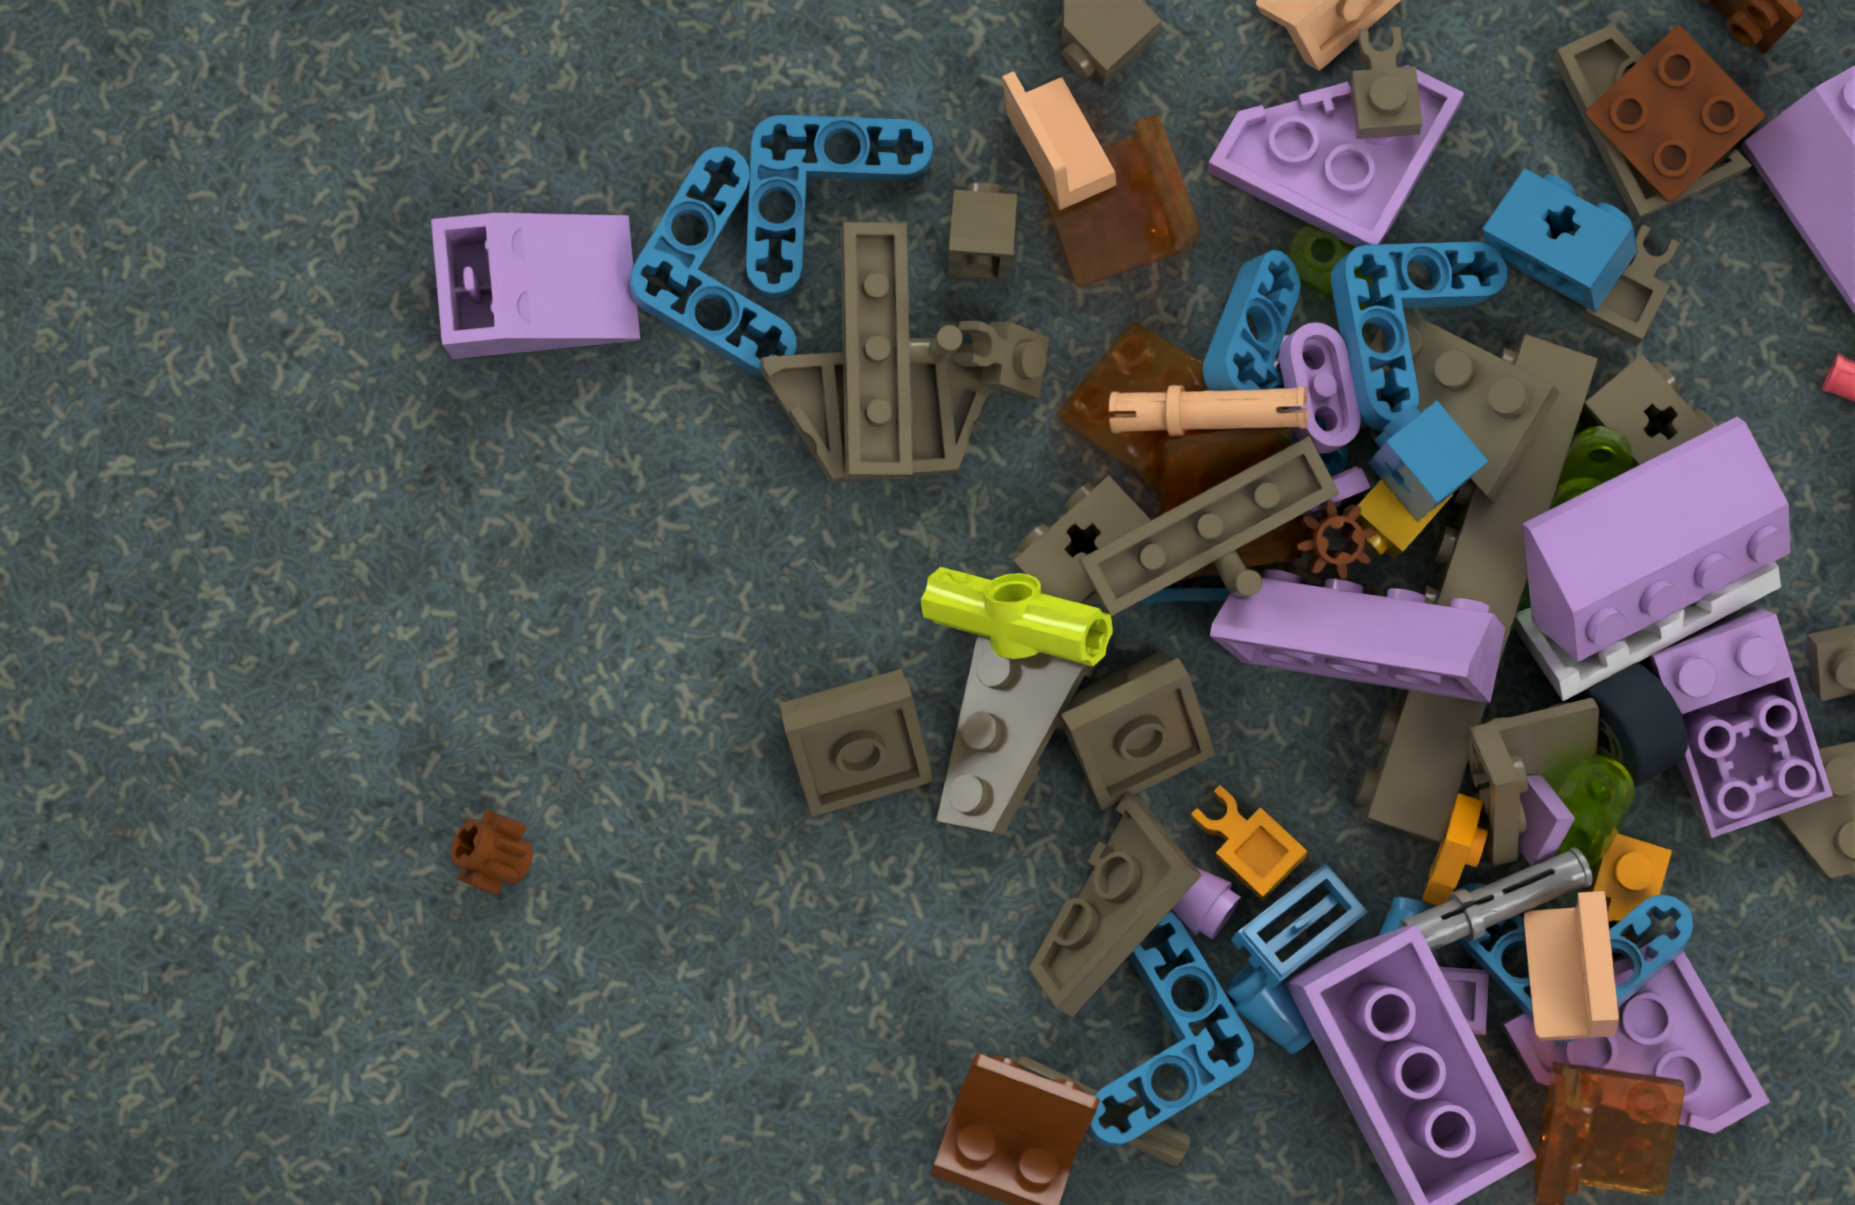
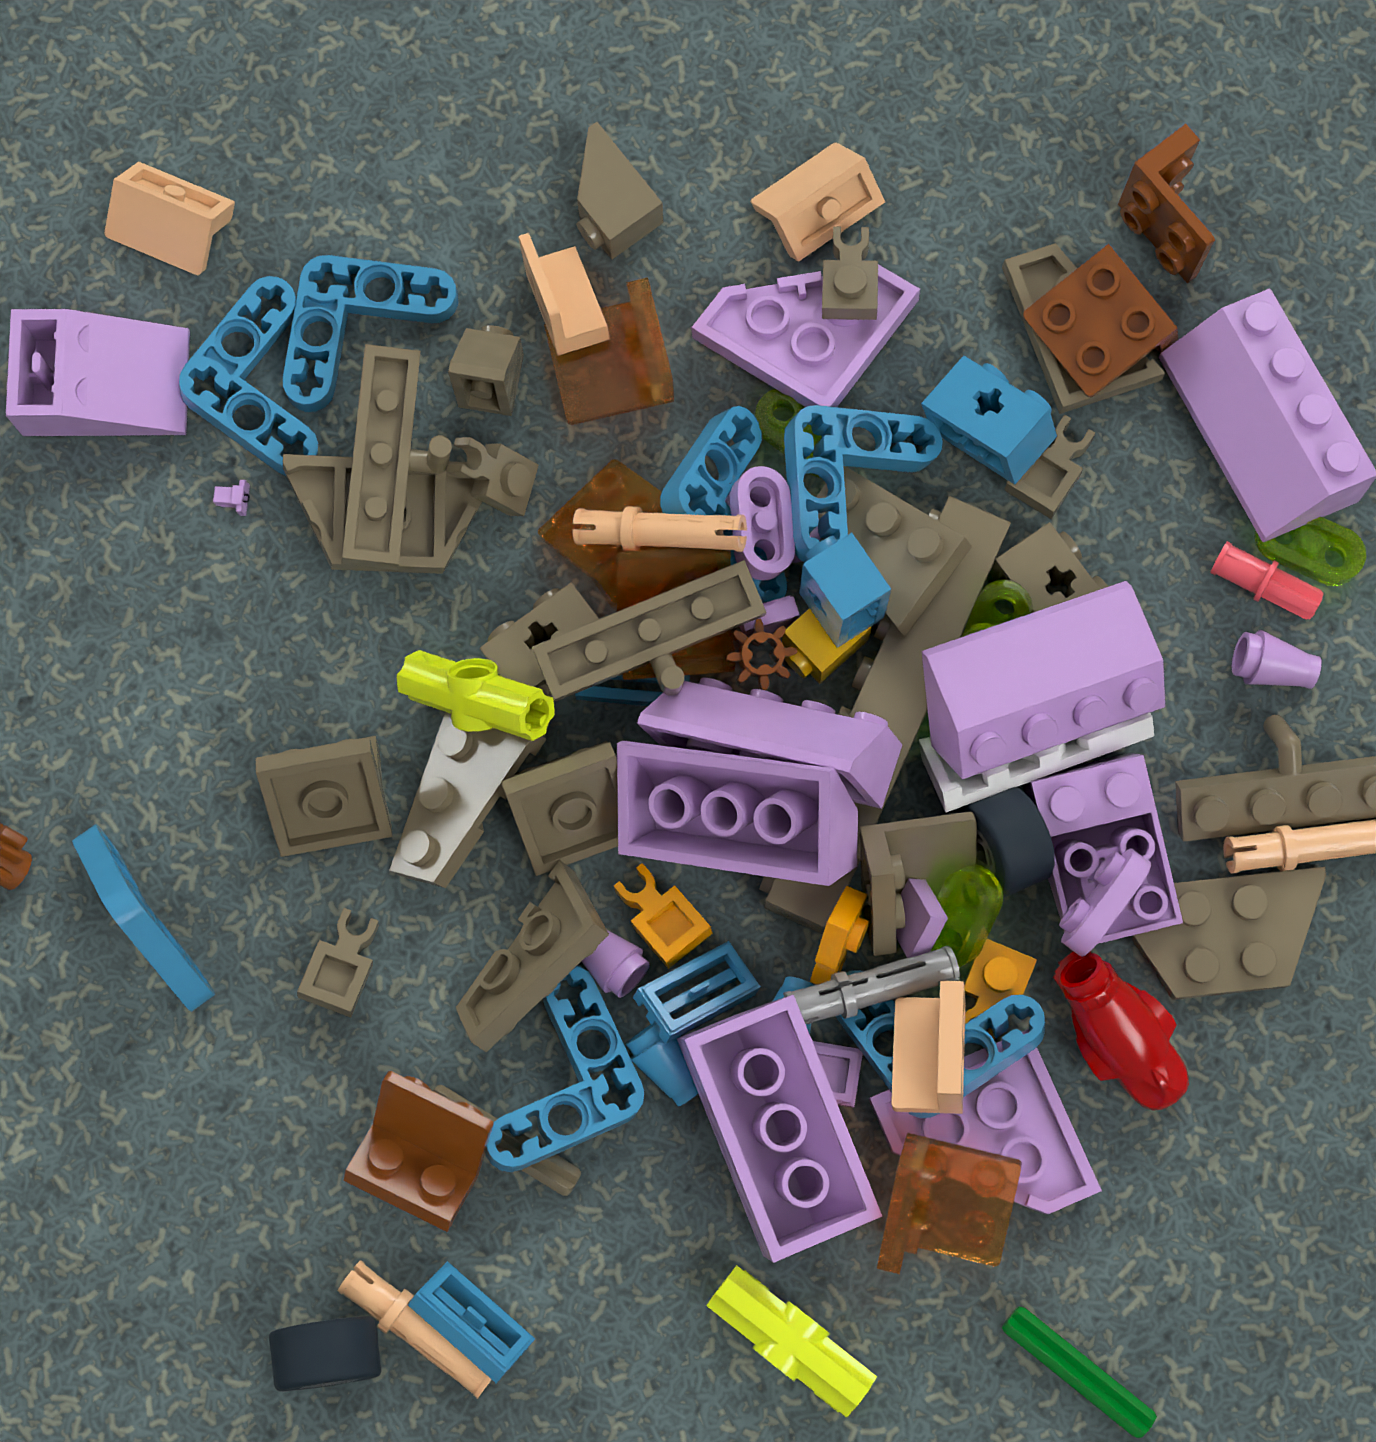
camera: 10 degrees right, 5 degrees down
(586, 85) = (165, 216): none -> light nougat panel
(665, 903) = (137, 920): none -> dark azure beam
(704, 407) = (233, 497): none -> lavender piece
(892, 941) = (338, 971): none -> dark tan plate
(1329, 728) = (735, 813): none -> lavender slope
(1762, 766) = (1090, 919): none -> lavender plate
(1775, 922) = (1122, 1031): none -> red animal

